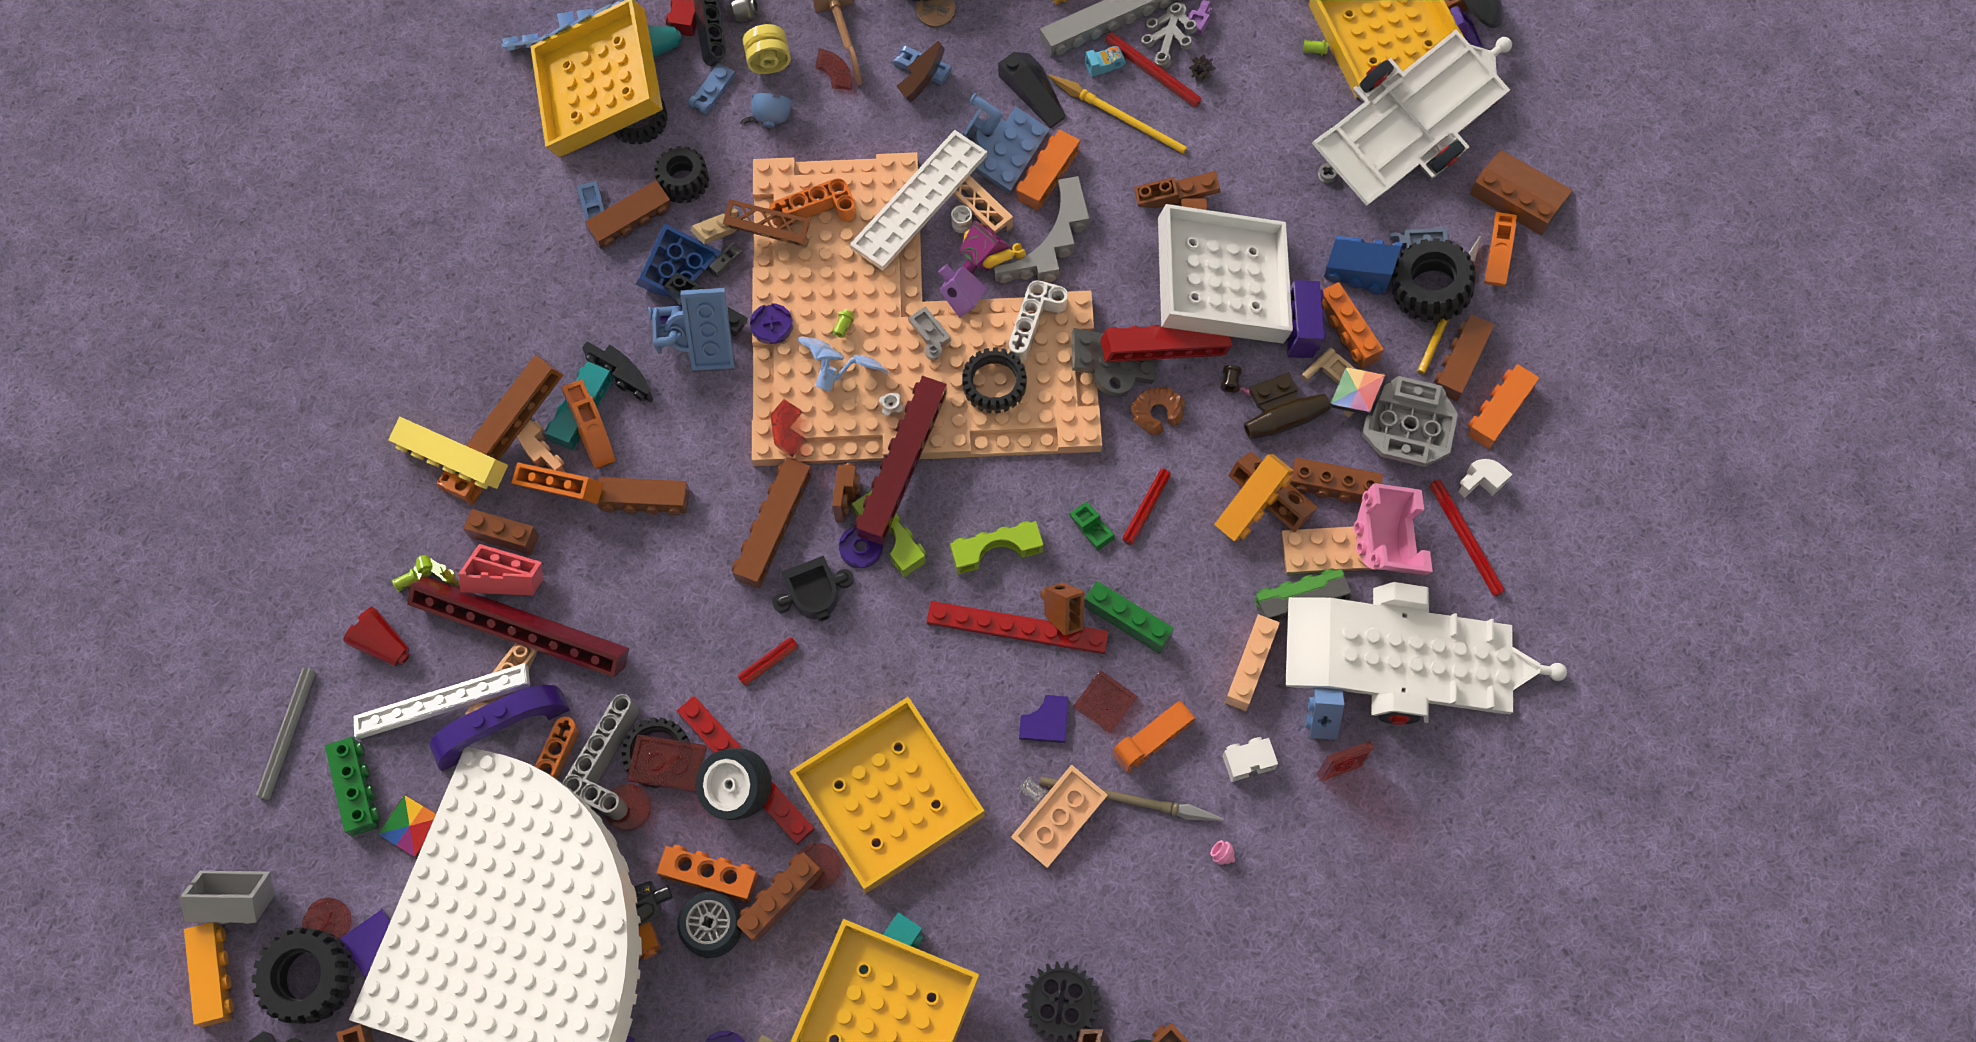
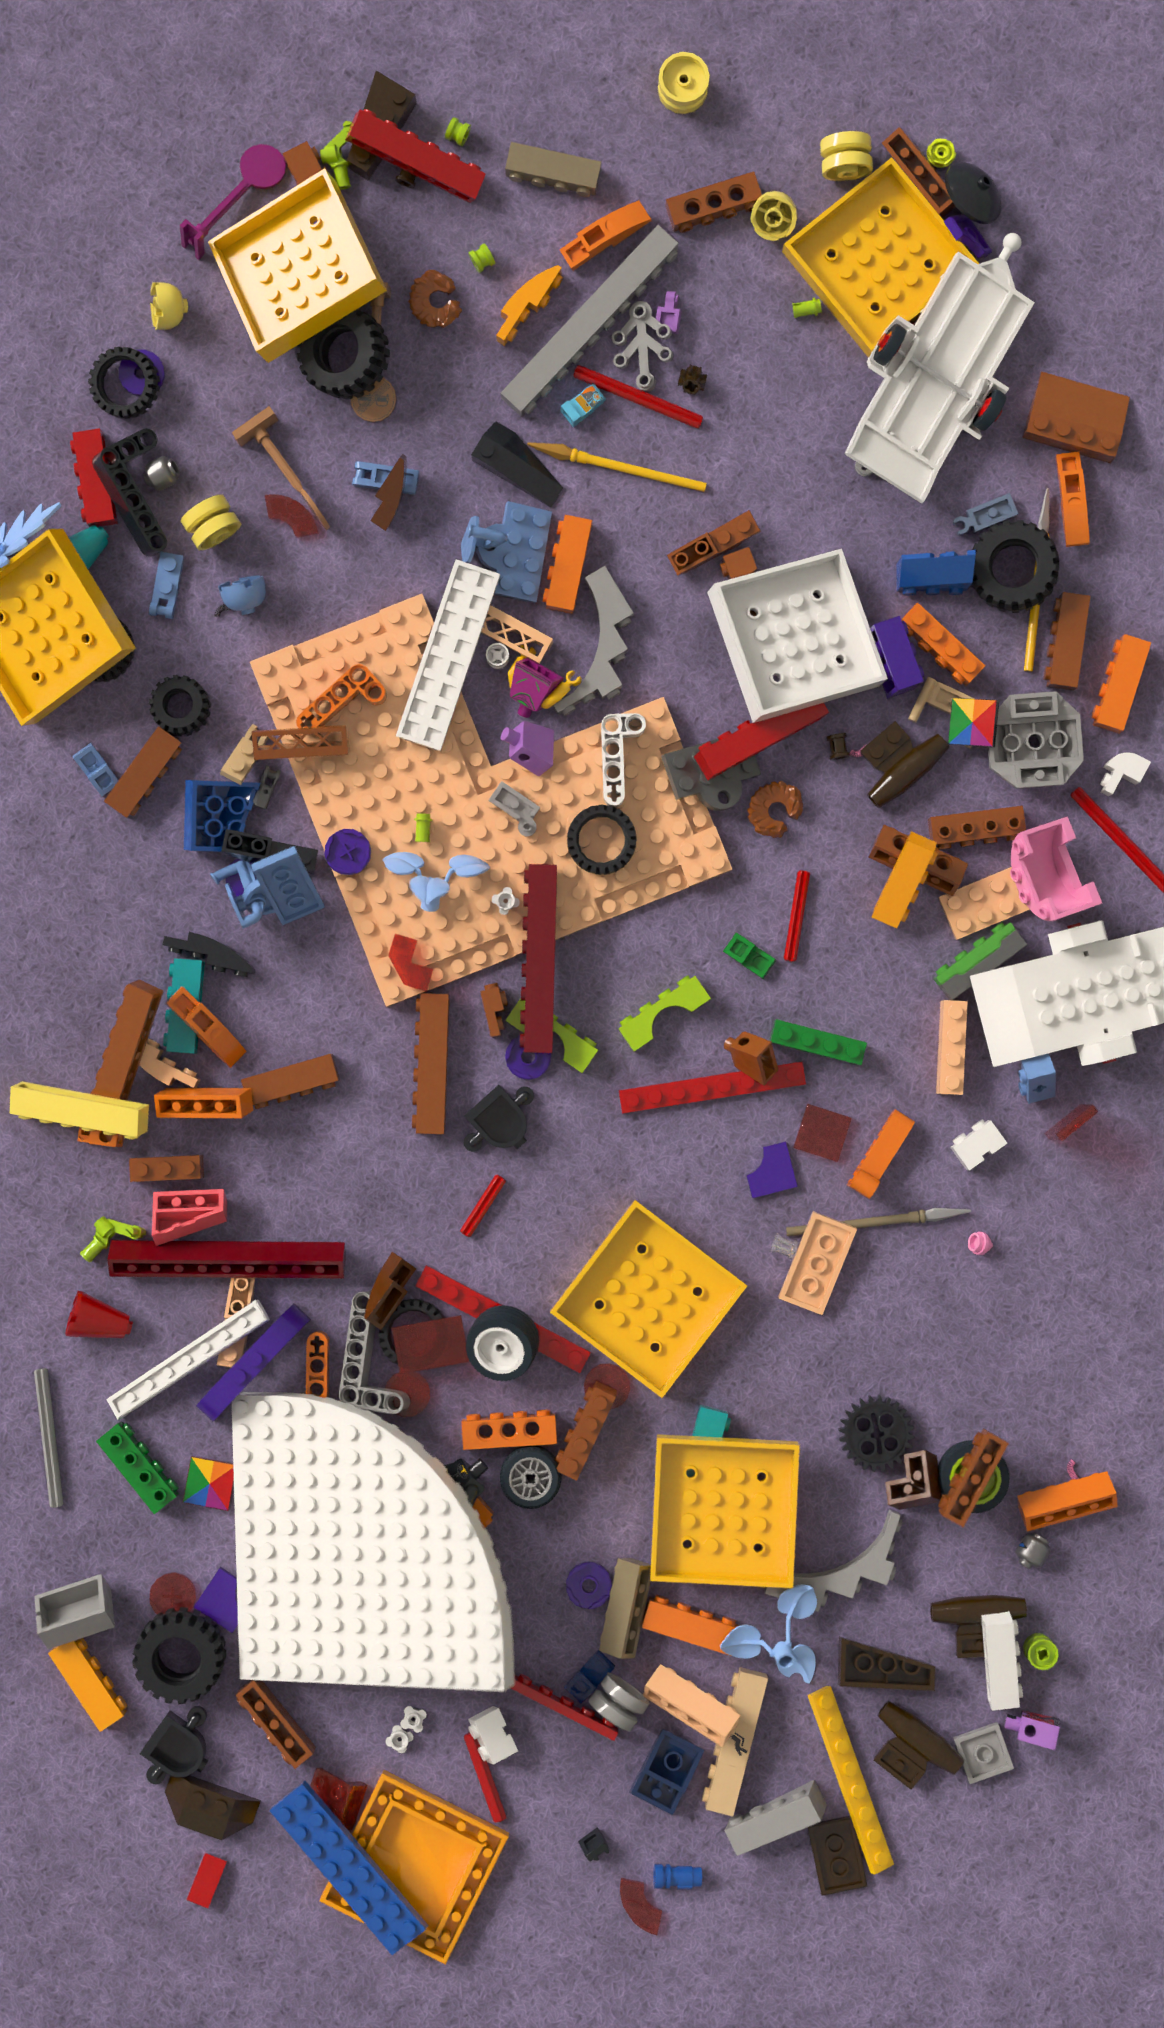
camera: 20 degrees left, 20 degrees up
(649, 701) = (388, 1290): none -> reddish brown slope

